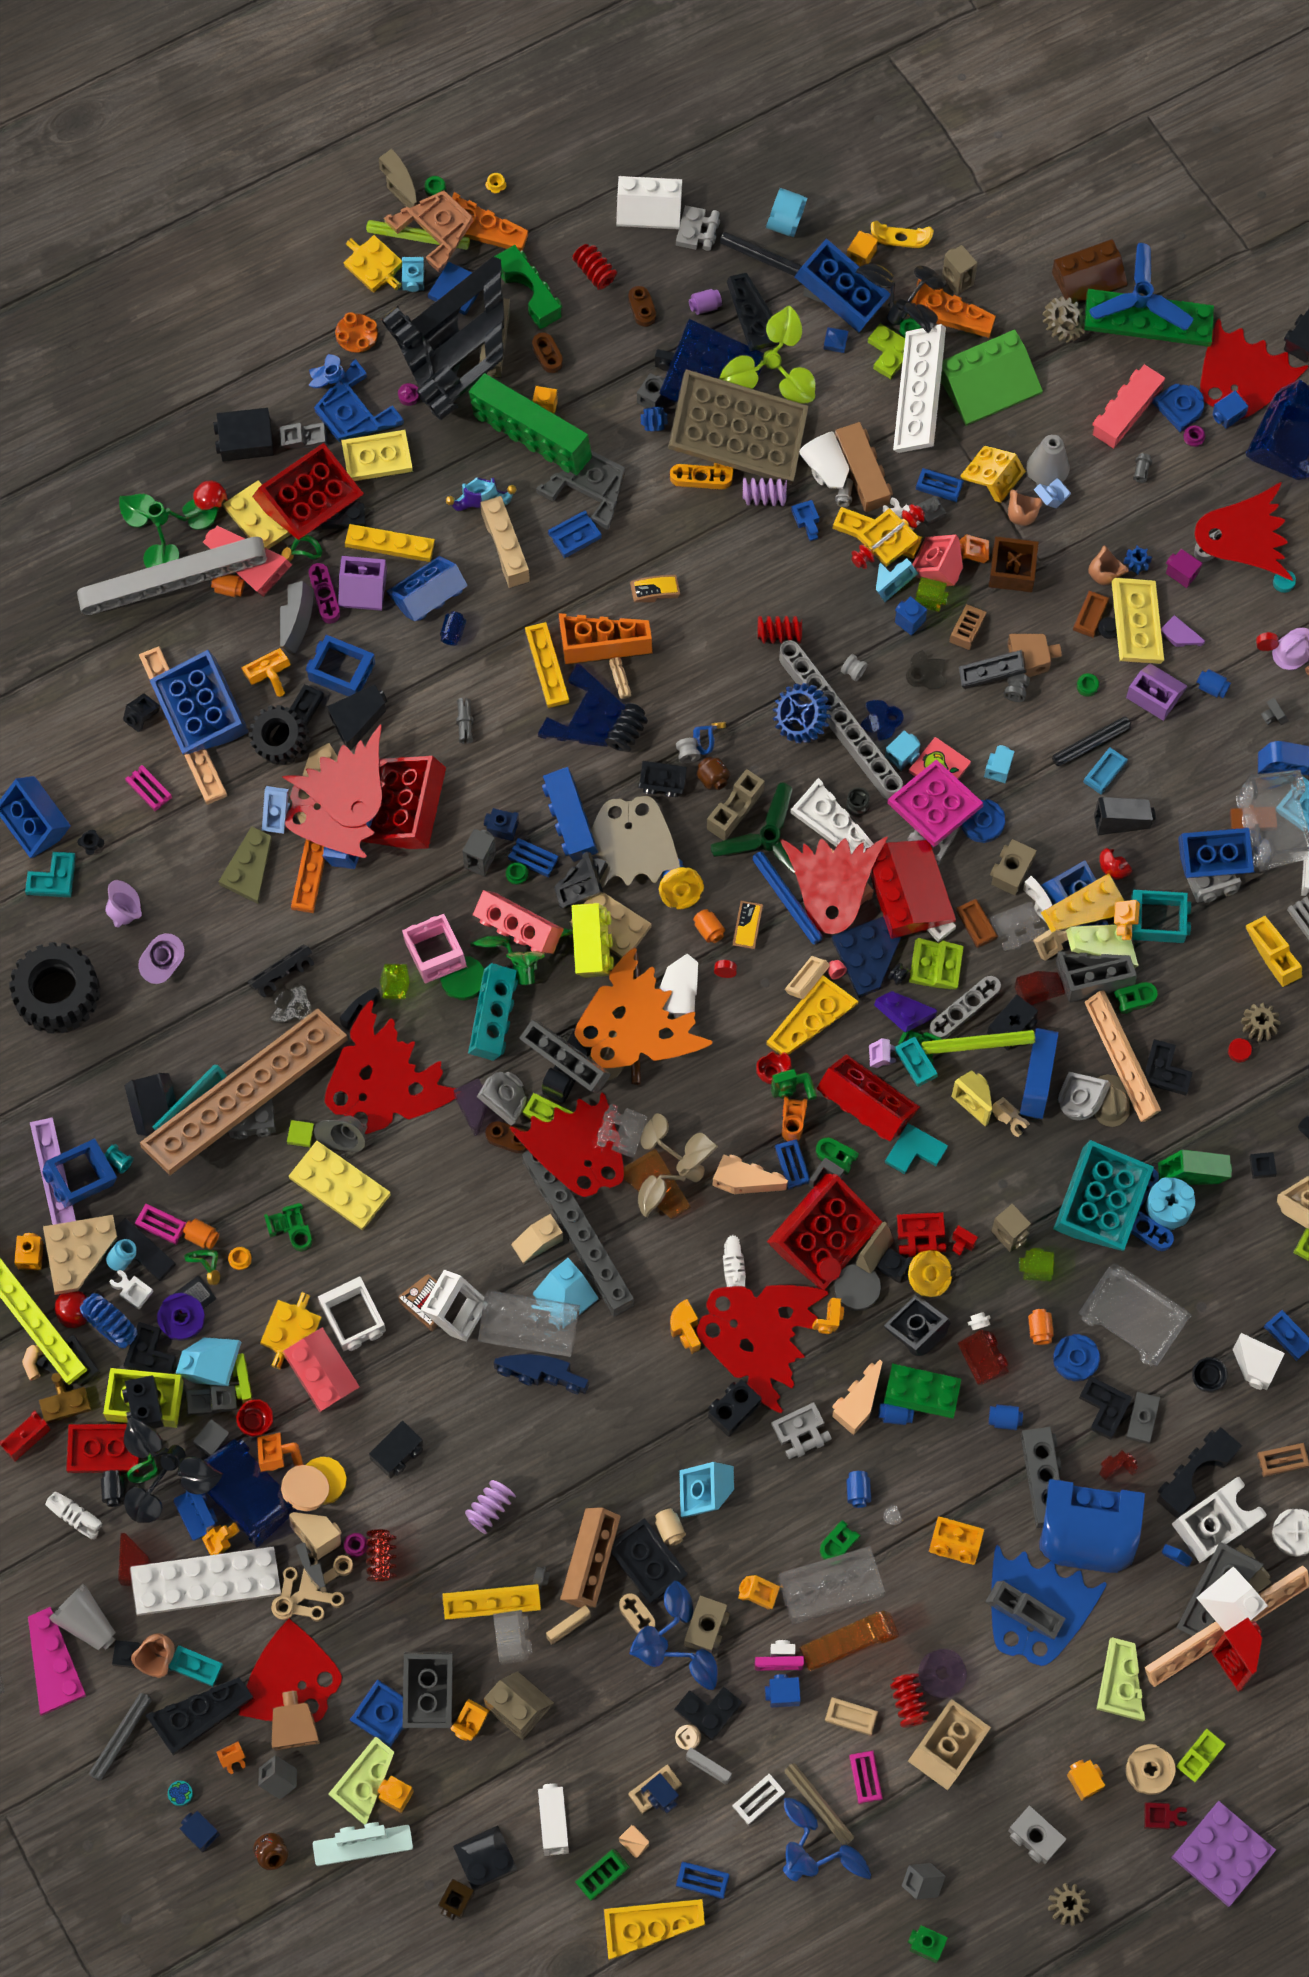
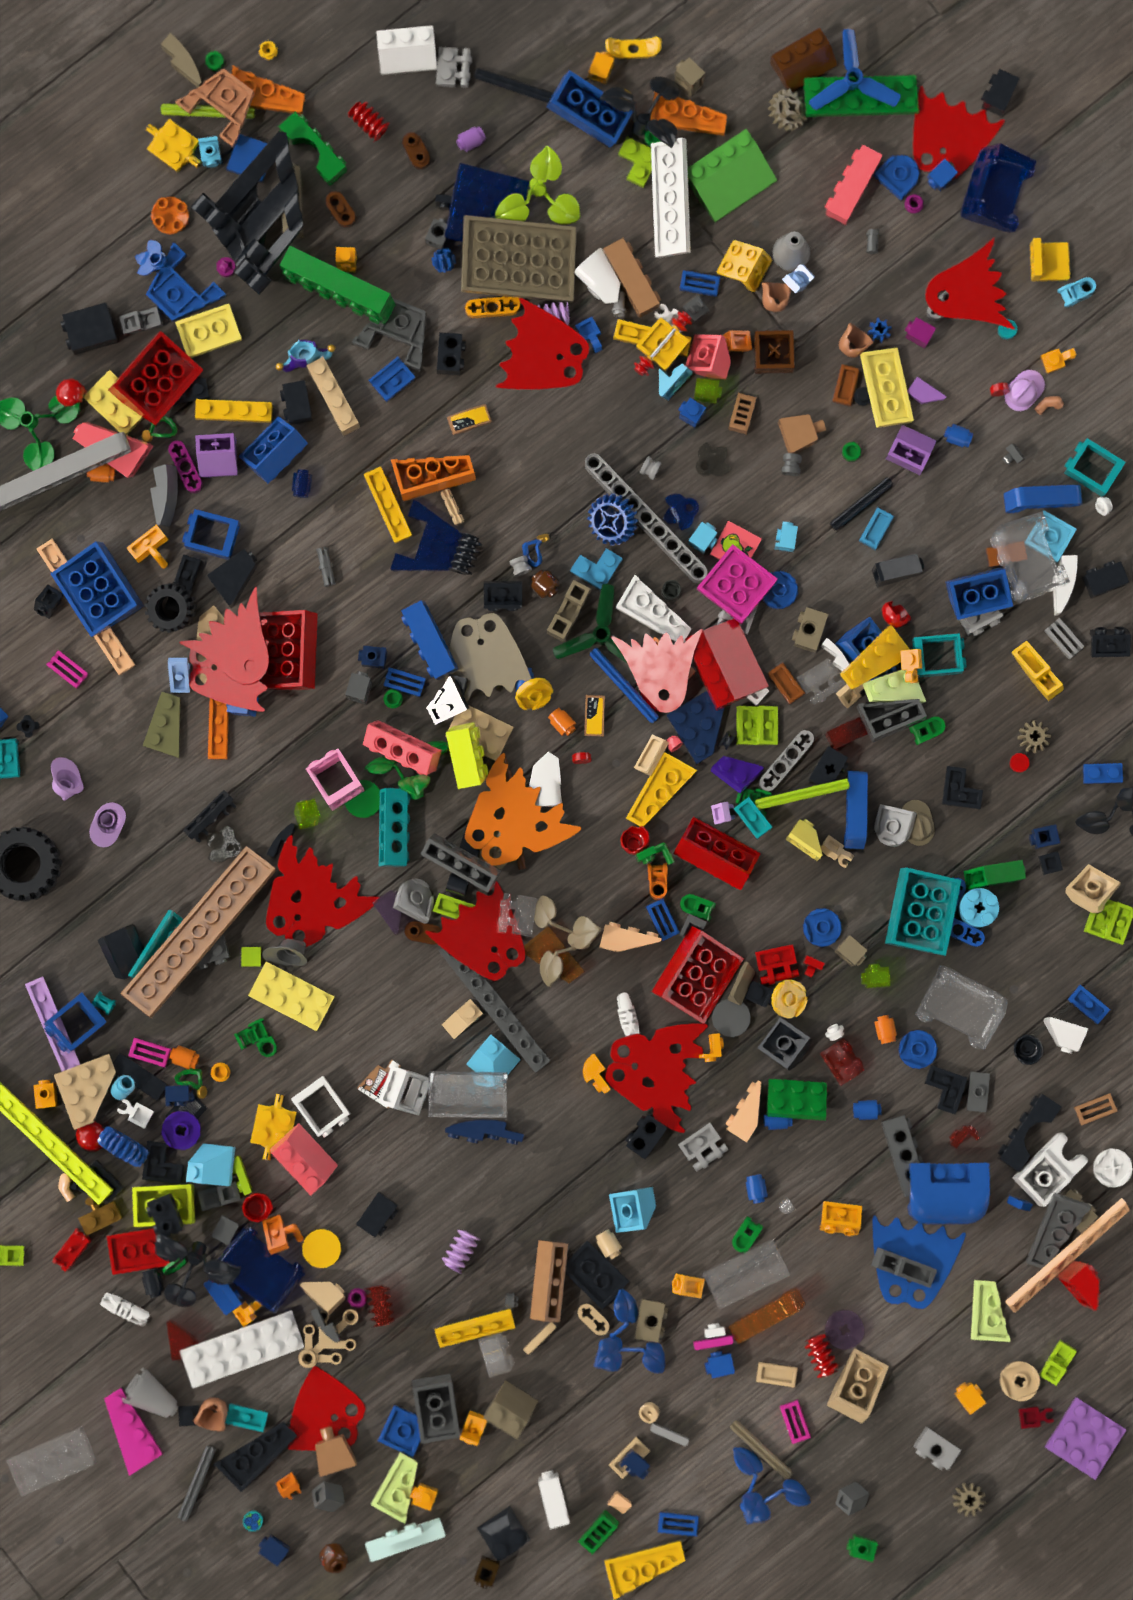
camera: 10 degrees left, 15 degrees up
(185, 1275) = (179, 1095): none -> dark blue brick
(305, 1488) = (308, 1260): light nougat tile -> none
(463, 541) = (297, 402): none -> black brick
(643, 516) = (446, 353): none -> black brick
(710, 1717) = (665, 1393): black plate -> none
(741, 528) = (535, 351): none -> red piece
(743, 1813) = (706, 1448): white tile -> none
(751, 311) = (513, 142): black wing -> none
(776, 772) = (597, 573): none -> dark azure plate
(779, 629) = (582, 442): red piece -> none
(786, 212) = (528, 43): medium azure brick -> none
(828, 1269) = (705, 1008): red tile -> none
(835, 340) = (590, 158): blue tile -> none
(915, 1143) = (759, 886): teal tile -> none
(980, 1201) = (822, 927): none -> blue tile
(992, 669) = (769, 452): black tile -> none
(1122, 1056) = (923, 784): light nougat tile -> none
(1231, 1600) = (1070, 1240): white slope -> none
(1265, 1130) = (1051, 834): none -> dark blue brick

